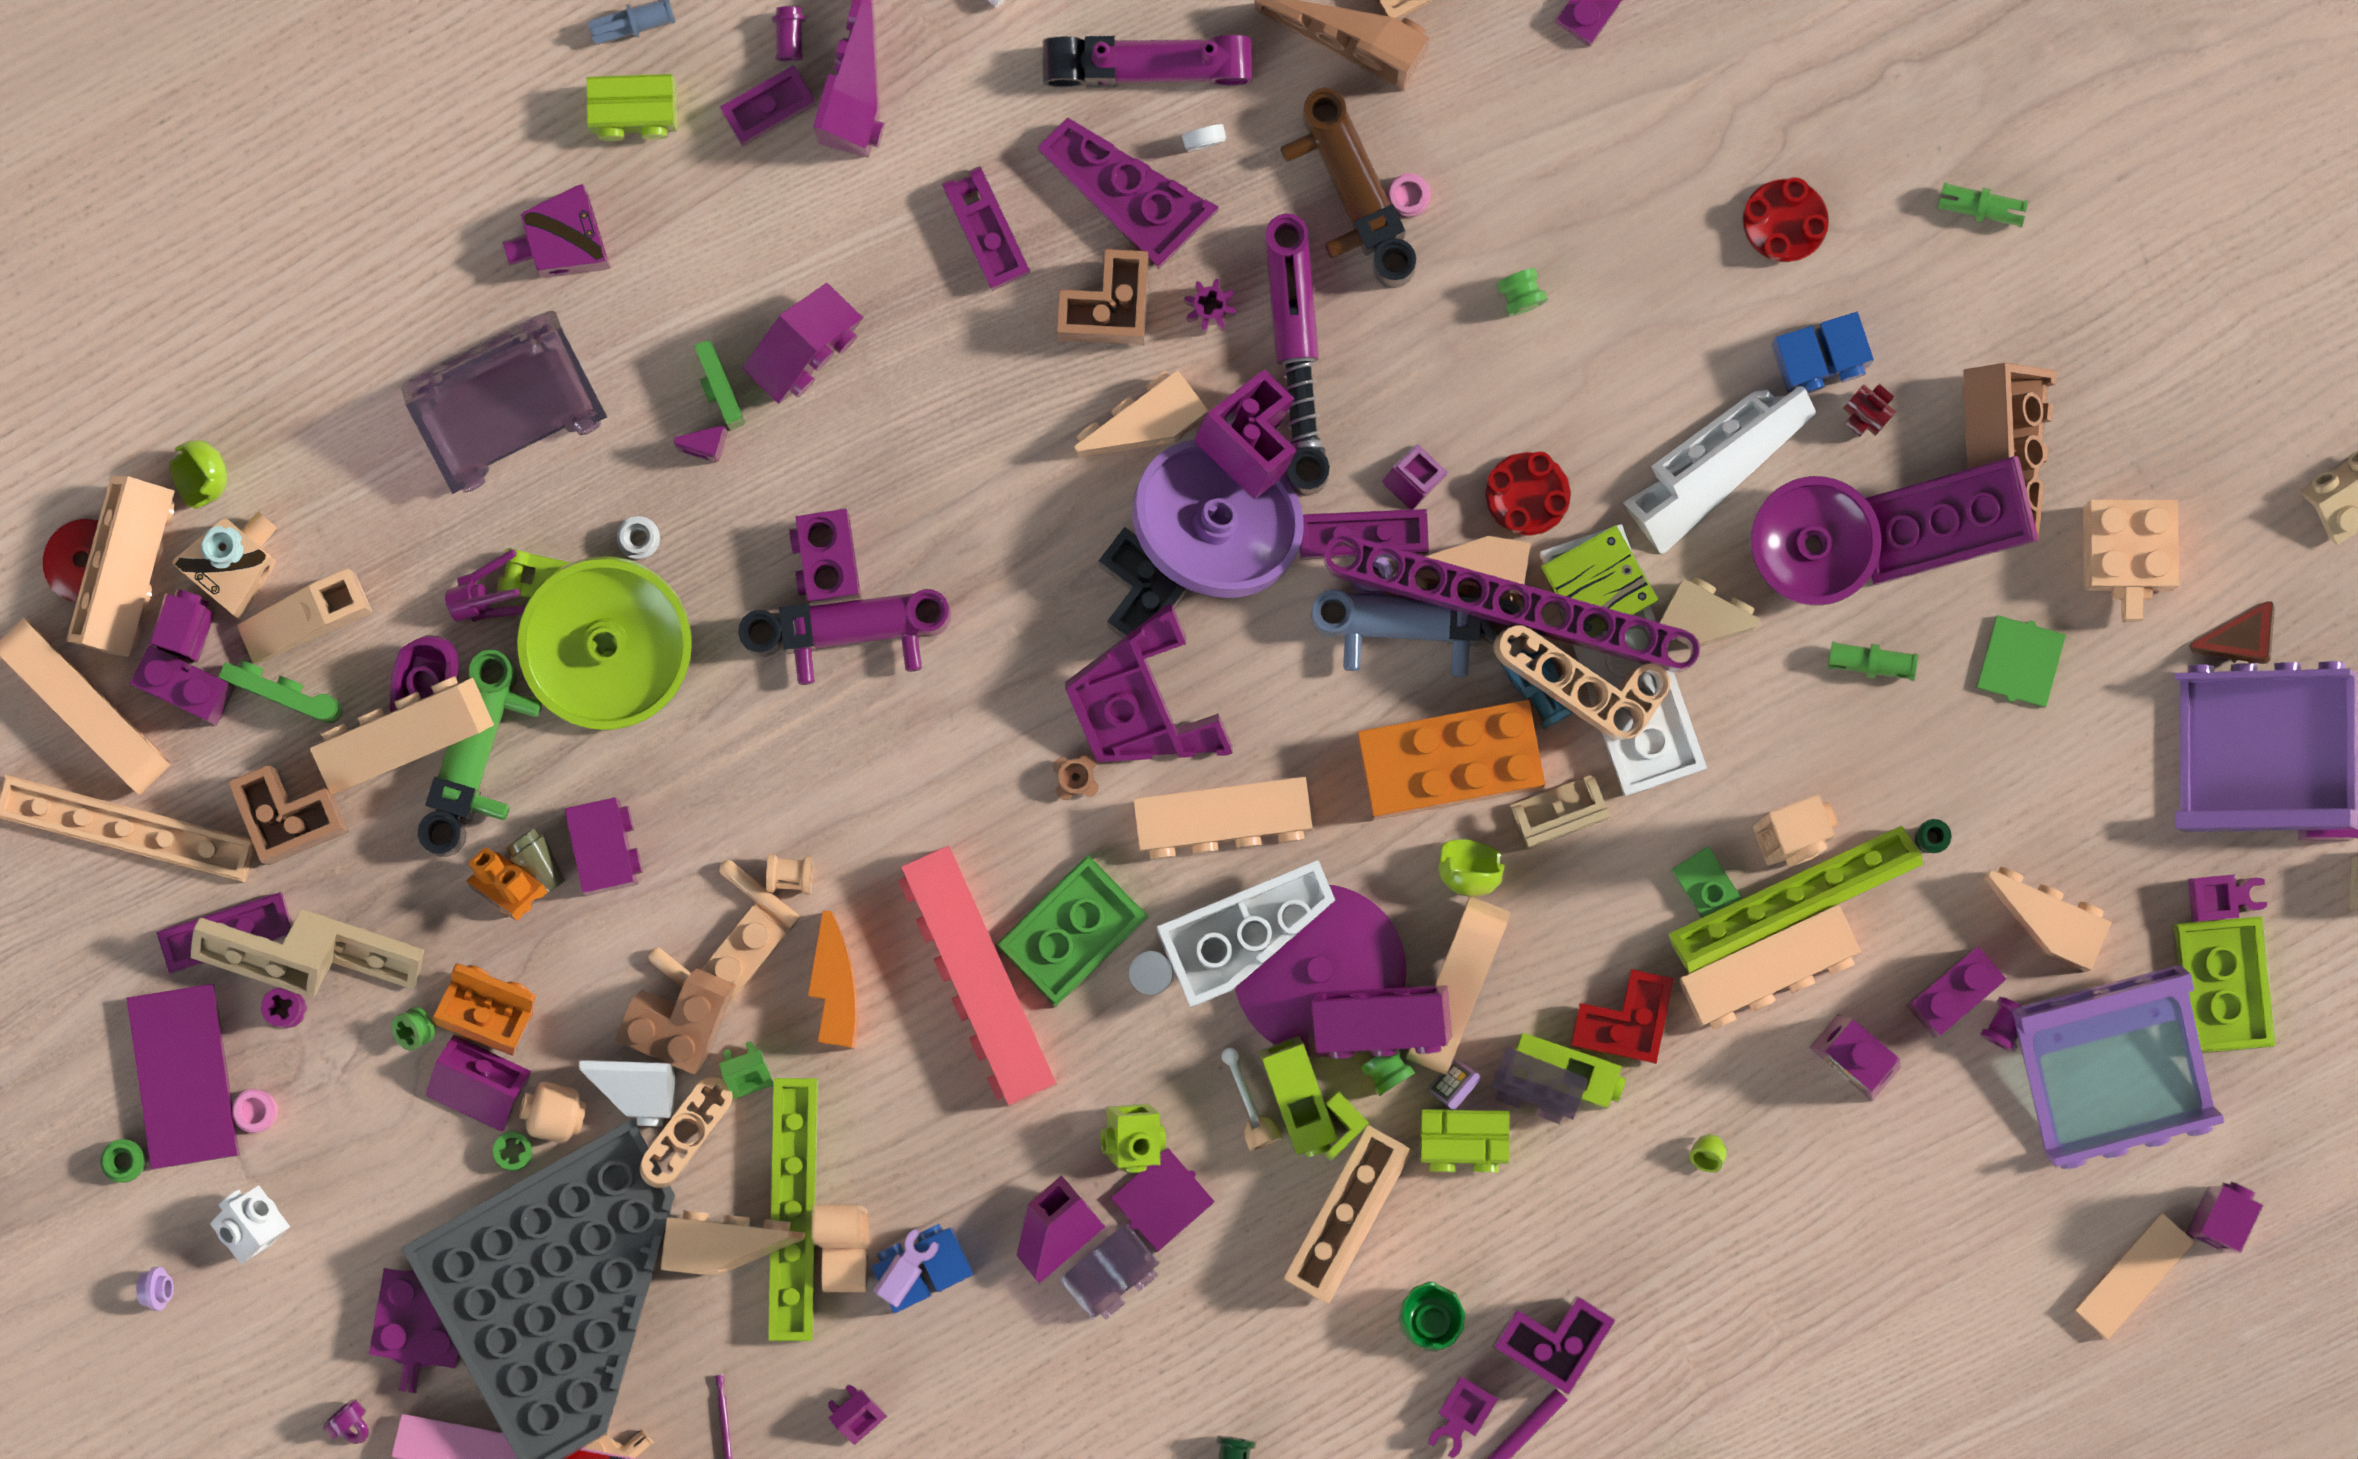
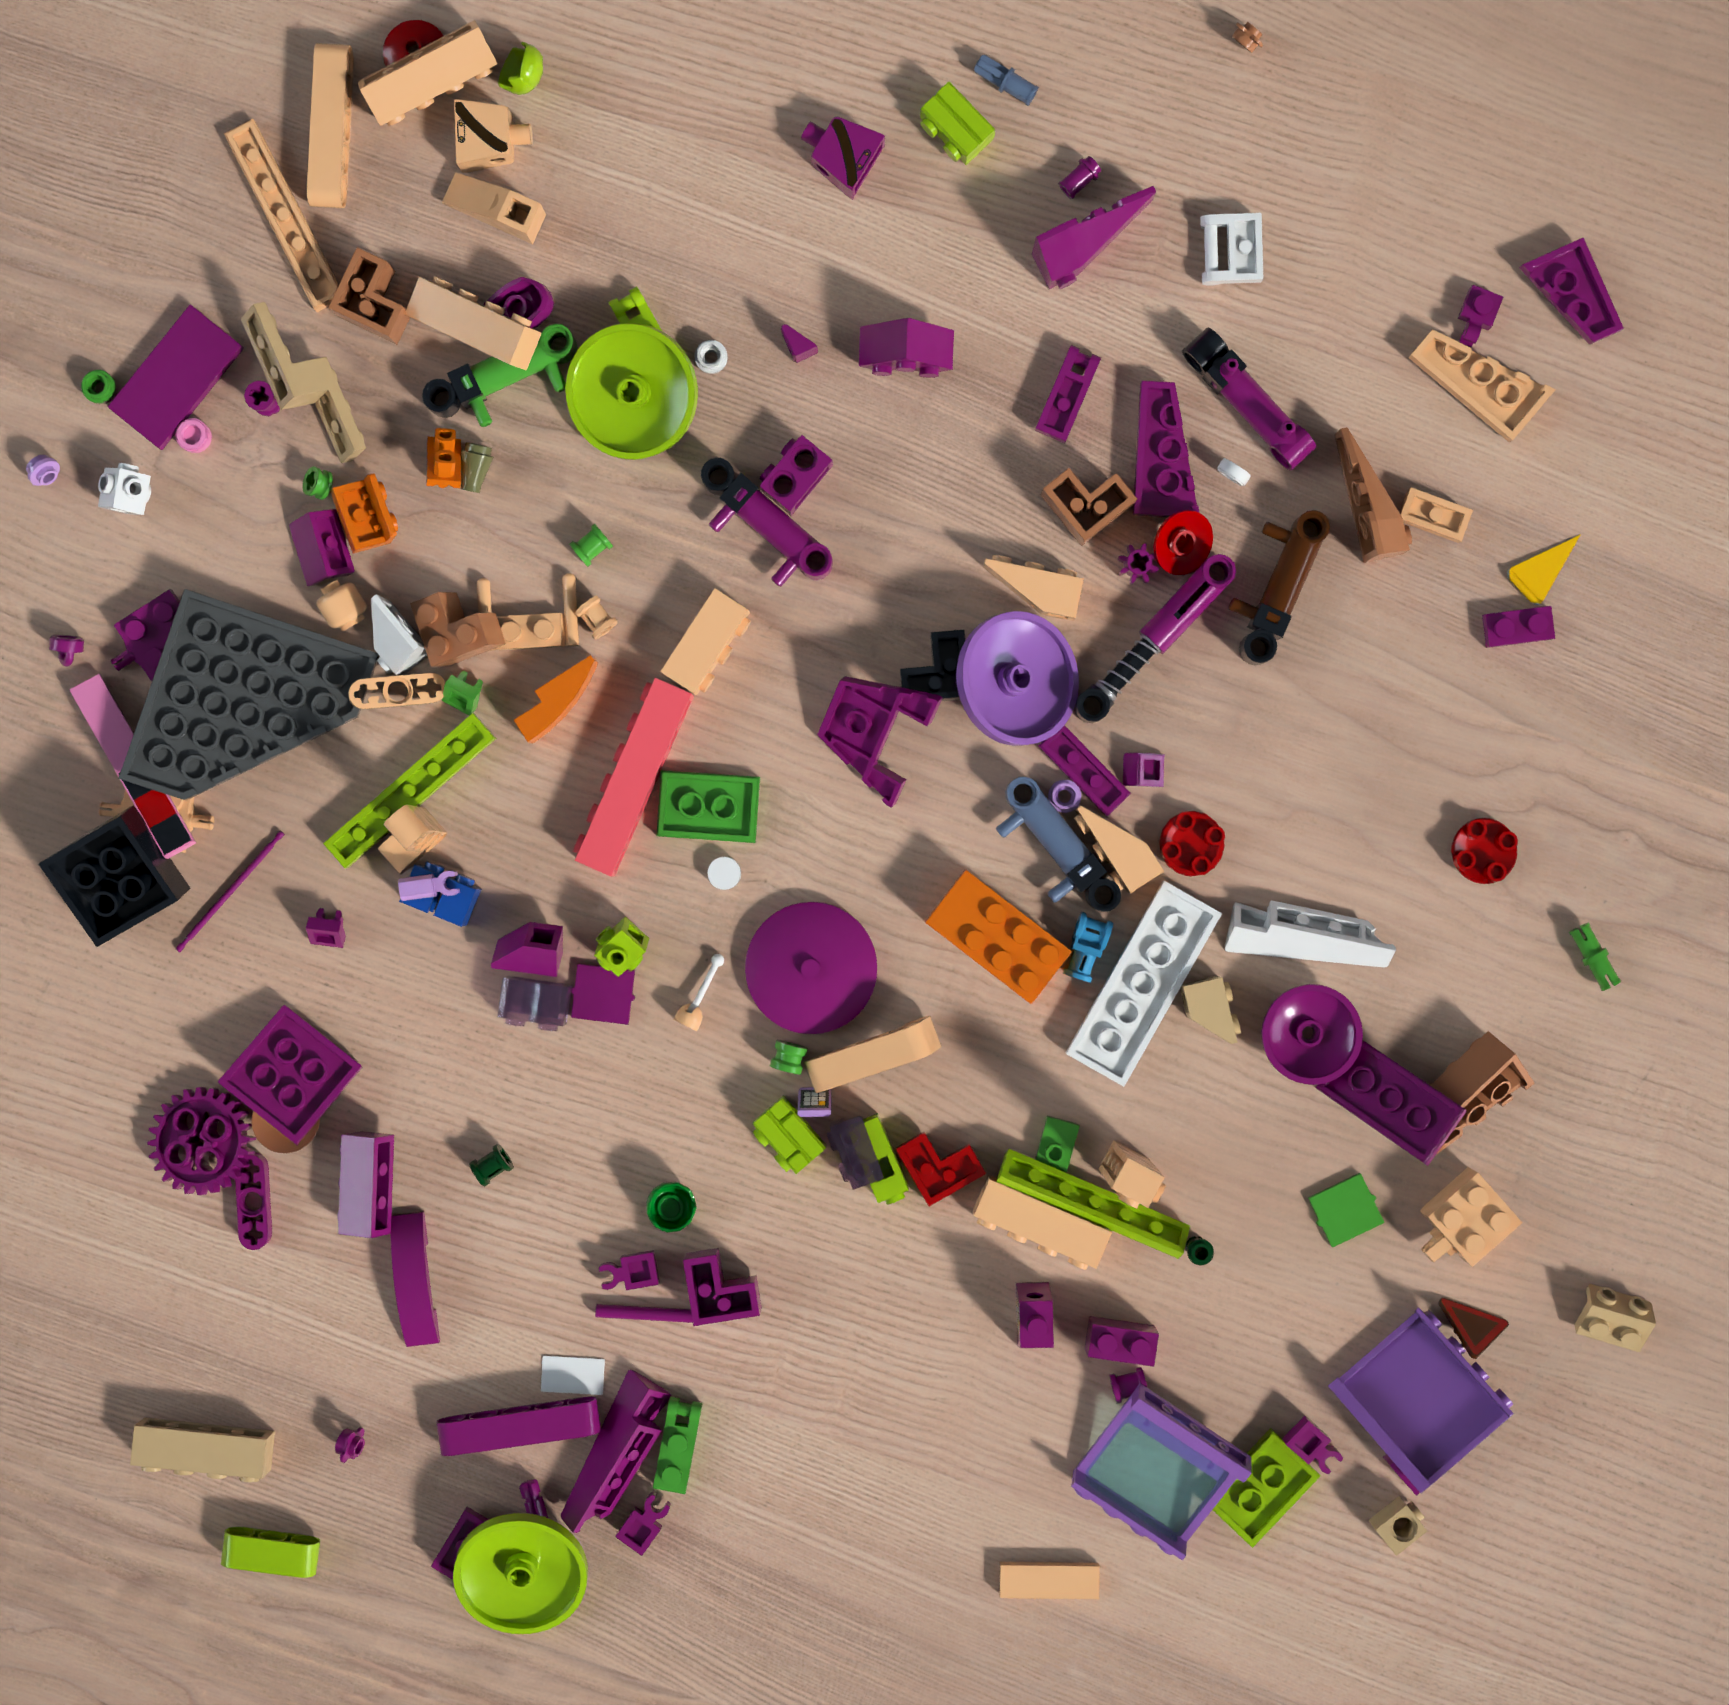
camera: 40 degrees right, 5 degrees up
(182, 625) = (423, 139): magenta brick -> none
(182, 685) = (393, 182): magenta piece -> none
(211, 543) = (484, 111): light aqua plate -> none
(261, 917) = (299, 337): magenta tile -> none
(284, 692) = (440, 233): bright green plate -> none
(473, 600) = (590, 295): magenta plant -> none
(501, 399) = (717, 204): clear purple windscreen -> none
(524, 1157) = (300, 591): bright green bush -> none
(603, 846) = (516, 496): magenta brick -> none
(715, 816) = (591, 545): none -> bright green bush
(715, 1248) = (342, 759): light nougat slope -> none
(717, 385) = (838, 321): bright green plate -> none
(768, 105) = (1026, 203): magenta plate -> none
(912, 788) = (706, 642): none -> light nougat brick
(1082, 766) = (807, 730): nougat plate -> none
(1222, 816) = (849, 834): light nougat brick -> none
(1233, 937) = (785, 904): white wedge -> none
(1241, 242) = (1192, 547): none -> red dish
(1244, 436) = (1078, 651): magenta brick -> none
(1298, 1097) = (727, 1020): lime brick -> none
(1348, 1214) = (685, 1108): light nougat brick -> none
(1349, 1117) = (739, 1066): lime panel -> none
(1382, 1020) = (811, 1031): magenta brick -> none
(1409, 195) = (1305, 620): bright pink tile -> none
(1470, 867) = (946, 1002): lime hair -> none
(1522, 292) = (1306, 736): bright green wheel -> none
(1533, 602) = (1131, 904): magenta beam -> none
(1560, 812) = (1024, 1024): tan hinge -> none
(1575, 674) = (1109, 966): light nougat beam -> none
(1603, 575) = (1175, 931): lime tile -> none
(1708, 1153) = (904, 1280): lime hinge -> none
(1843, 347) = (1426, 941): blue piece -> none
(1869, 410) = (1416, 997): dark red gear -> none
(1873, 661) = (1270, 1126): bright green pin -> none
(2058, 928) = (1209, 1361): light nougat slope -> none
(2225, 1217) = (1128, 1608): magenta brick -> none

